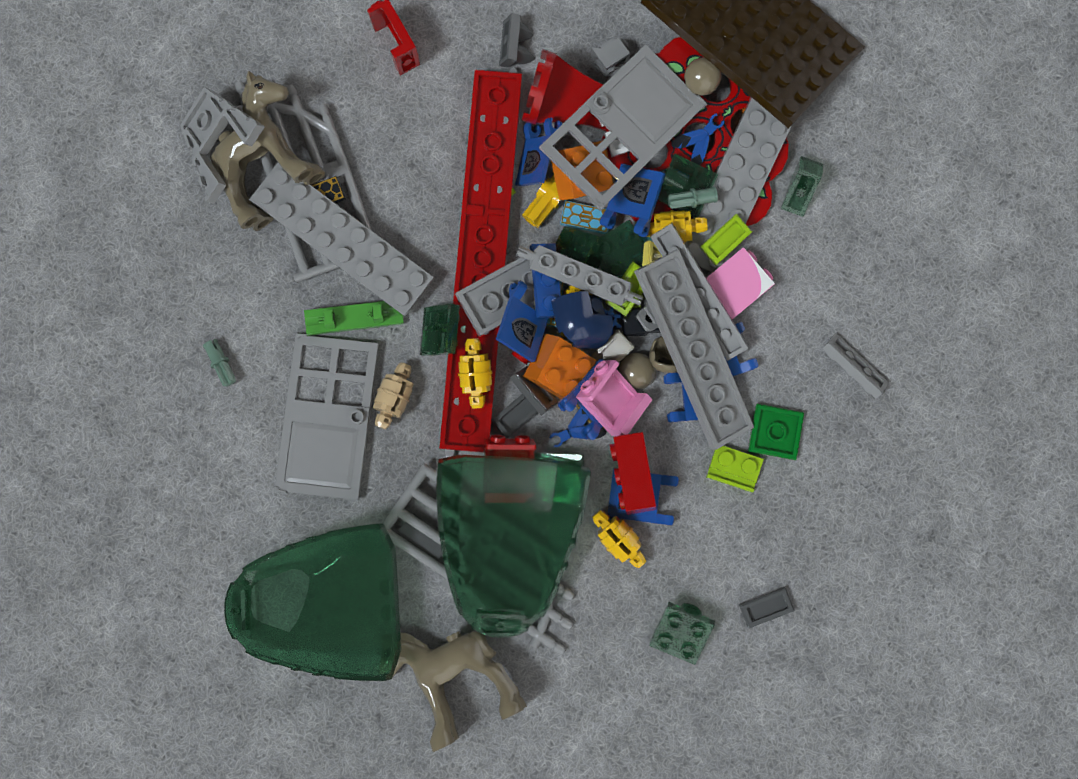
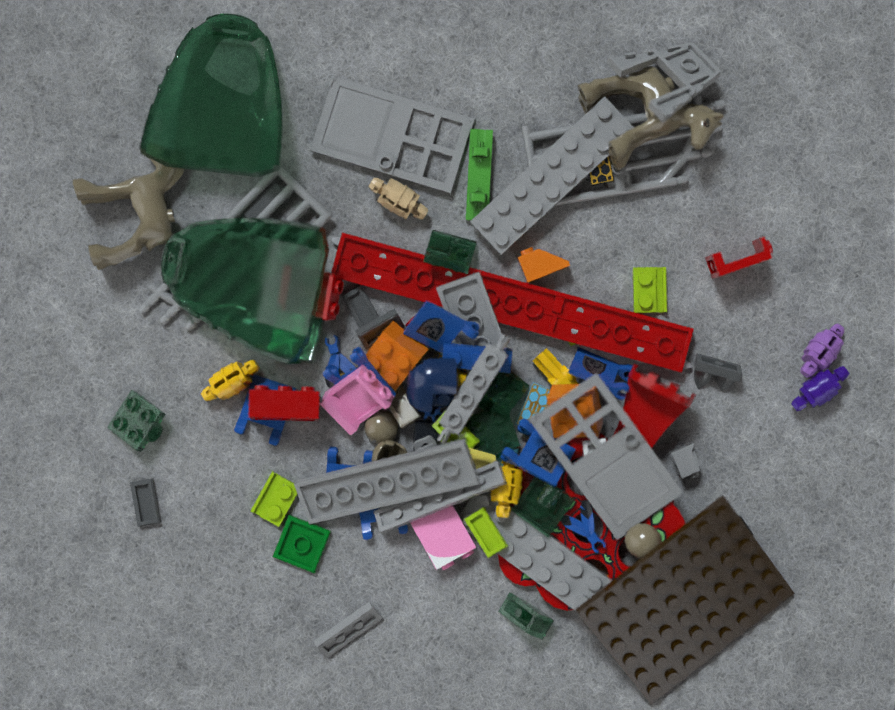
camera: 105 degrees right, 5 degrees up
(219, 362) = (459, 44): sand green axle -> none
(436, 237) = (539, 264): none -> orange slope
(442, 123) = (649, 289): none -> lime plate
(475, 373) = (402, 276): yellow piece -> none
(693, 198) = (528, 508): sand green axle -> none

